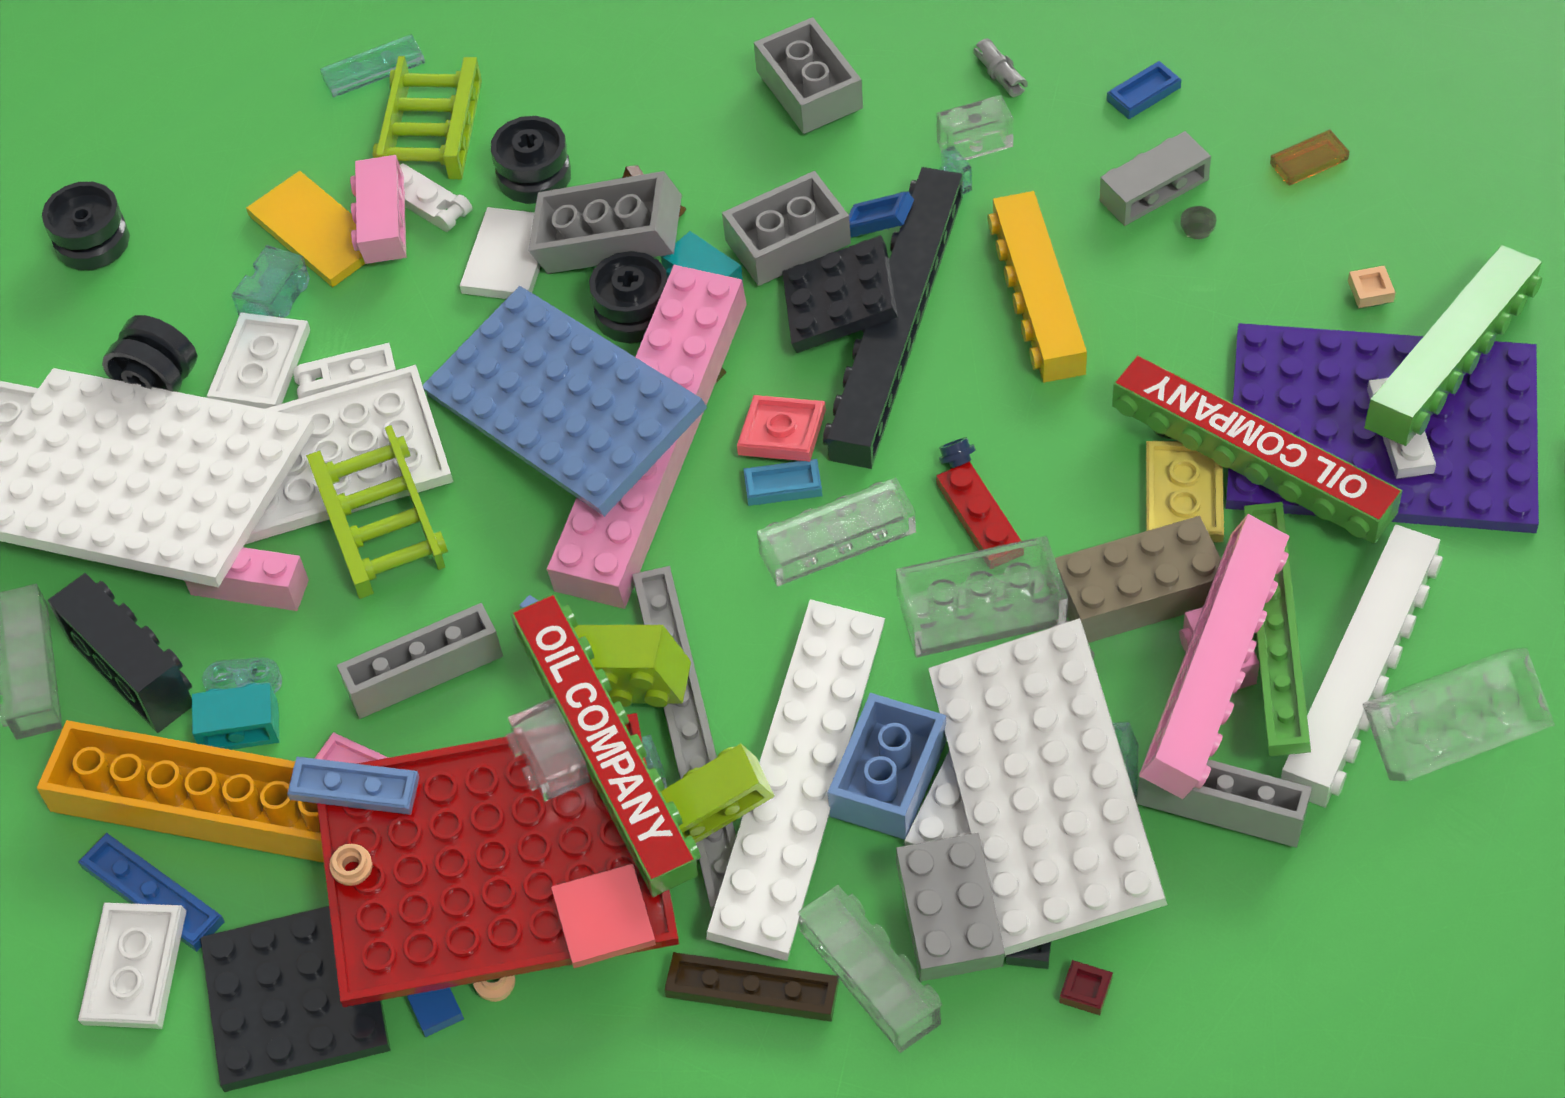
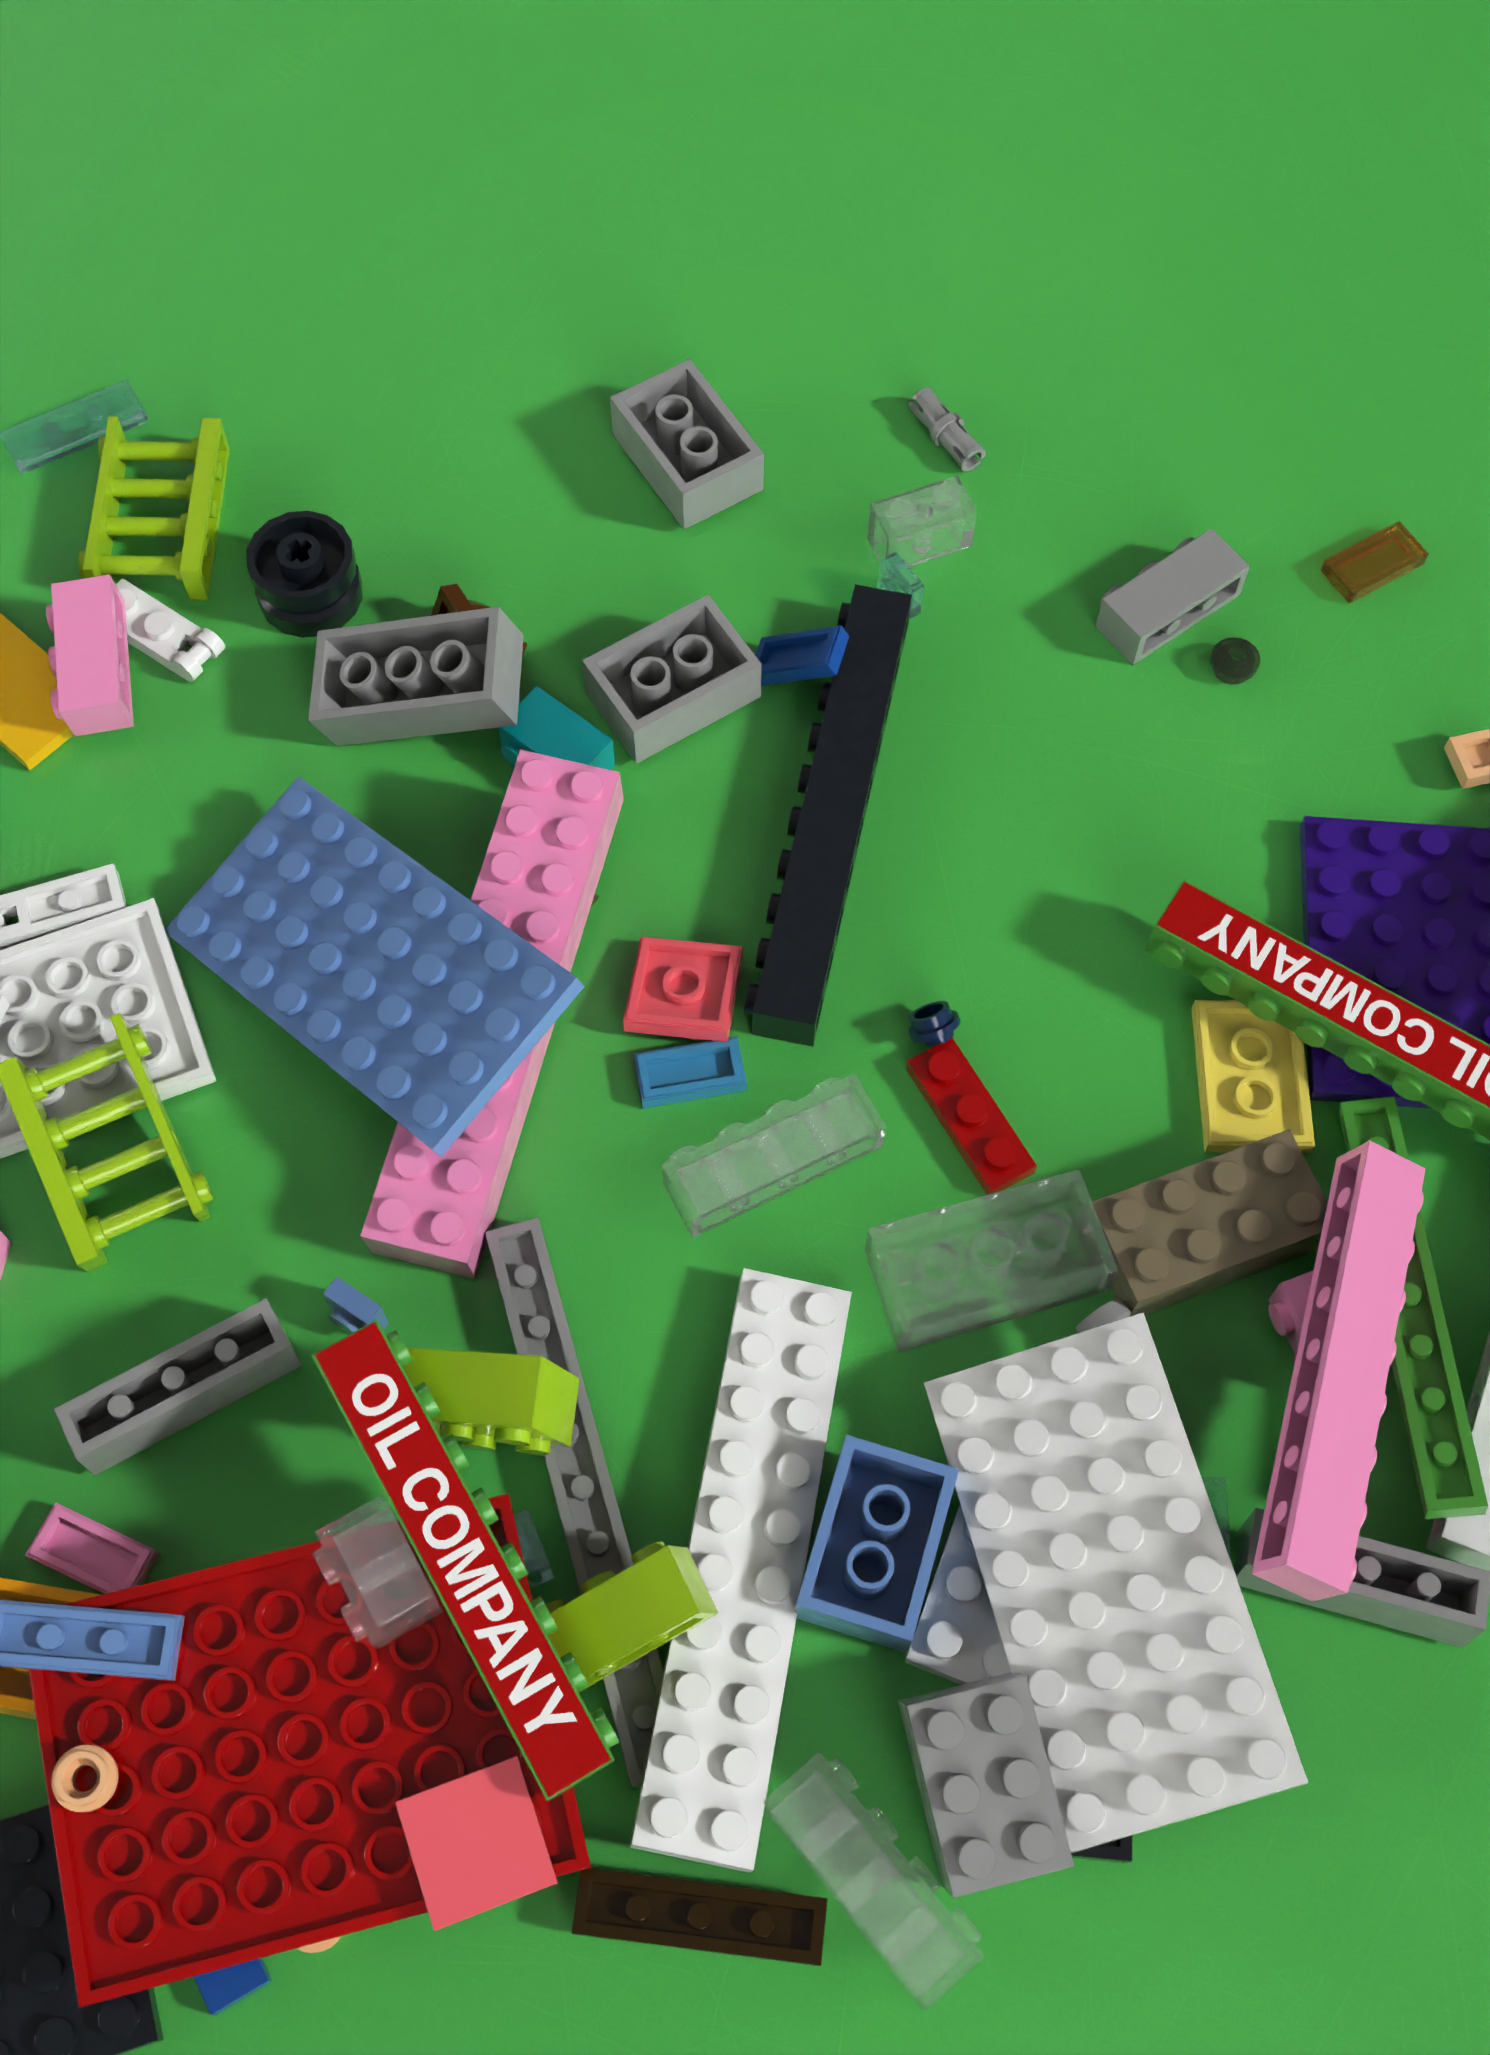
camera: 10 degrees left, 10 degrees up
(501, 255) = (268, 722): white tile -> none
(626, 294) = (454, 785): black wheel -> none
(839, 294) = (753, 782): black plate -> none
(1038, 287) = (1027, 765): yellow brick -> none
(1086, 987) = (1185, 1892): dark red tile -> none
(1143, 90) = (1142, 461): blue tile -> none

